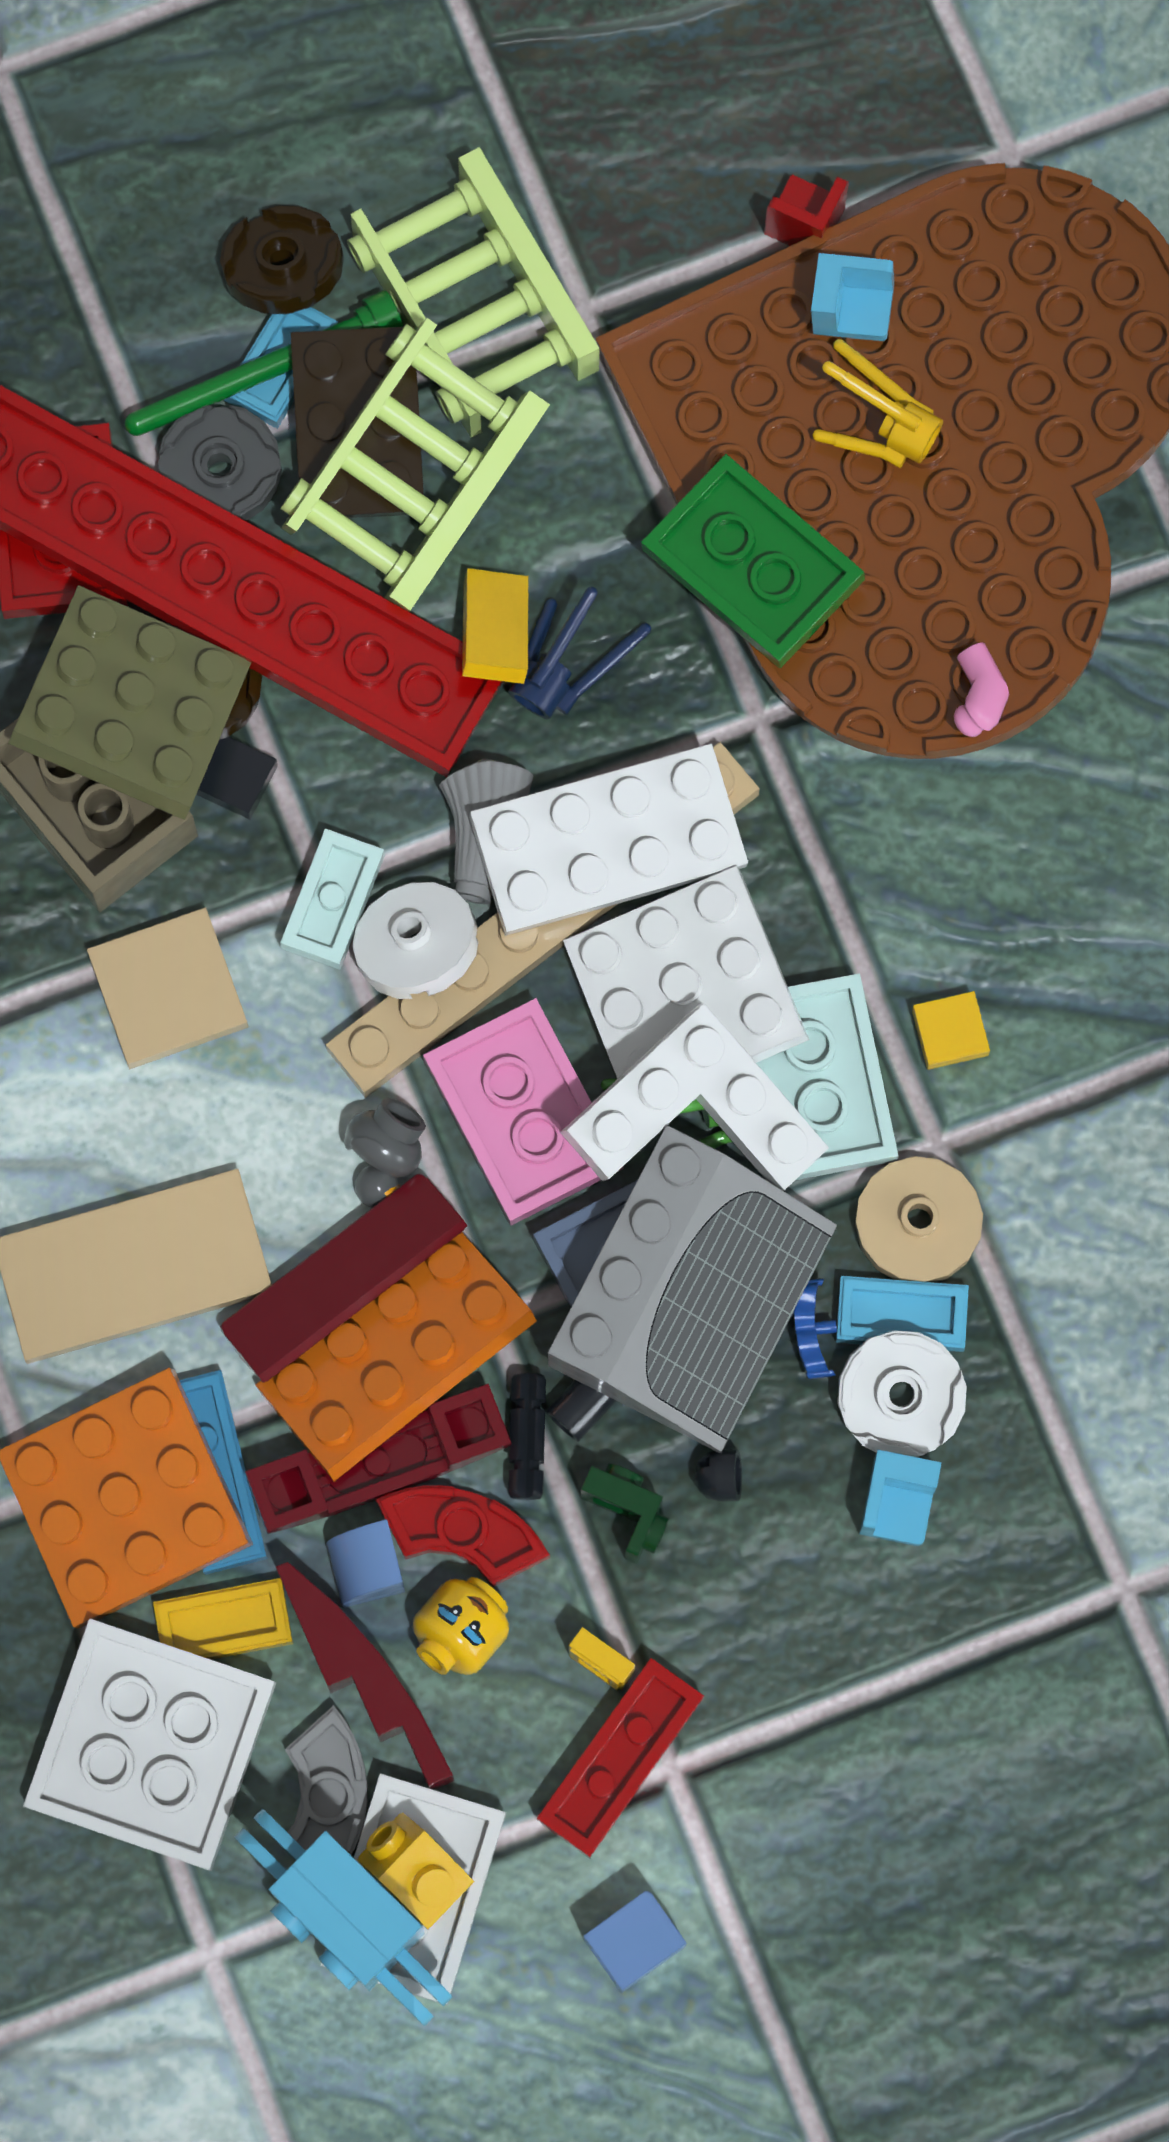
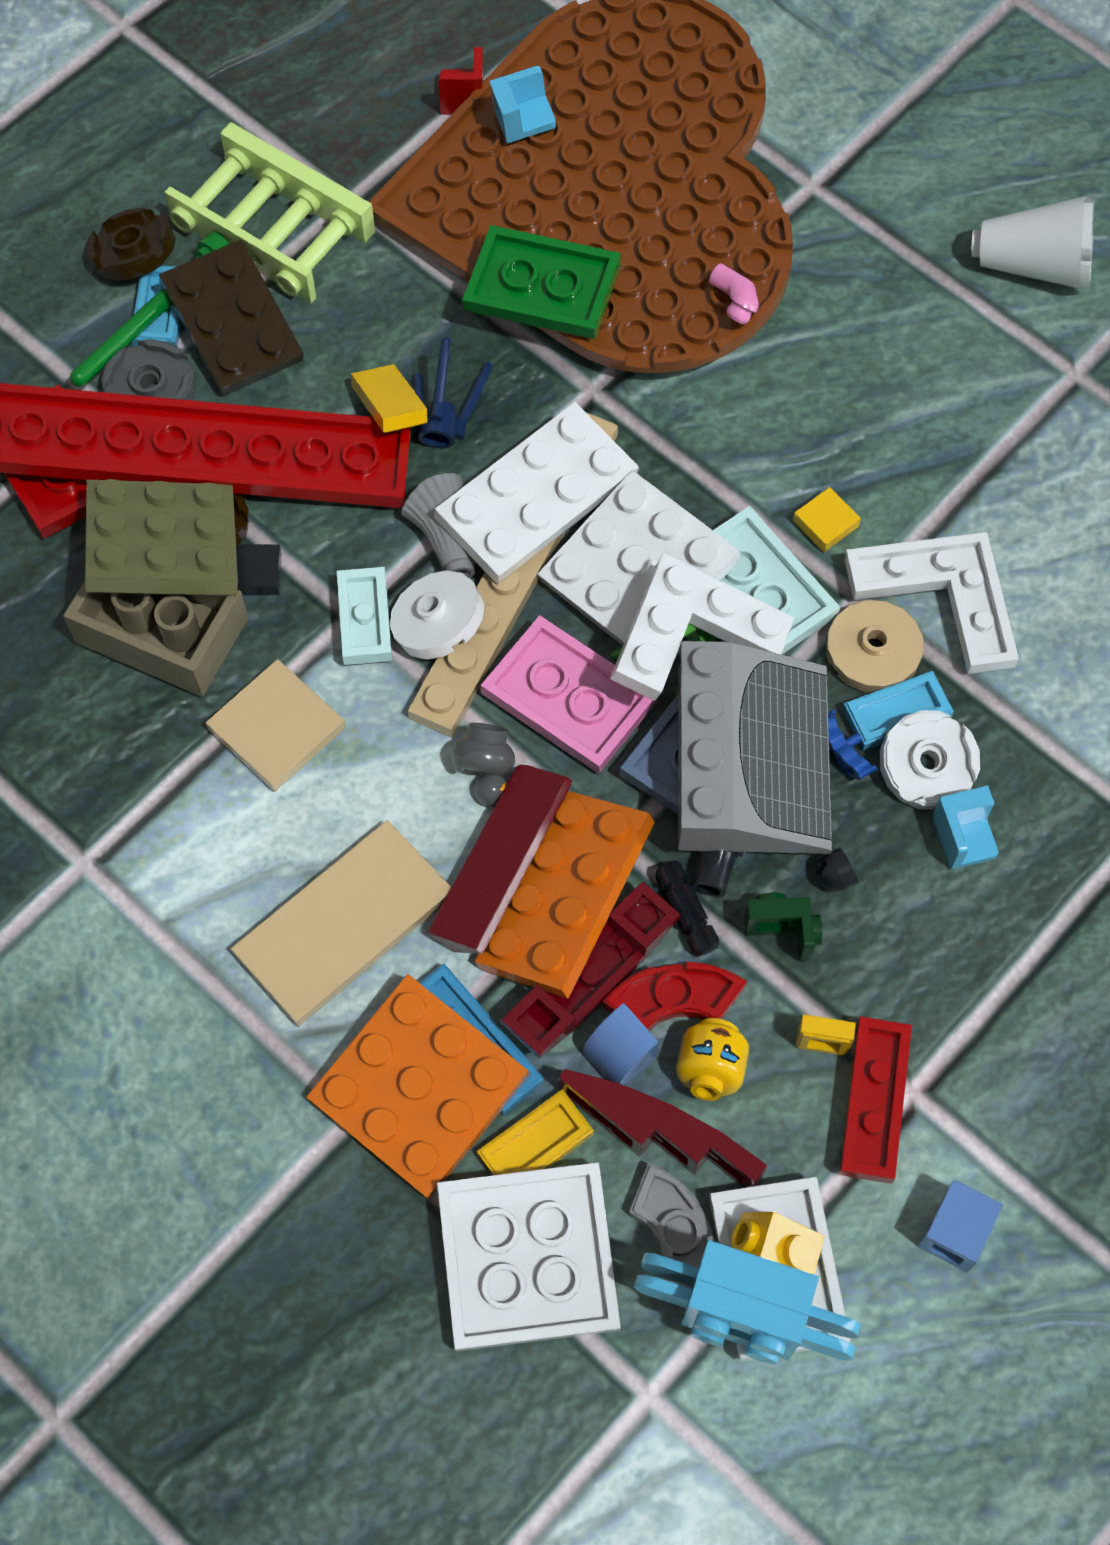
camera: 25 degrees left, 10 degrees down
(474, 470) = (326, 307): yellowish green fence -> none
(908, 423) = (600, 162): yellow plant -> none
(1068, 1160) = (952, 563): none -> white plate

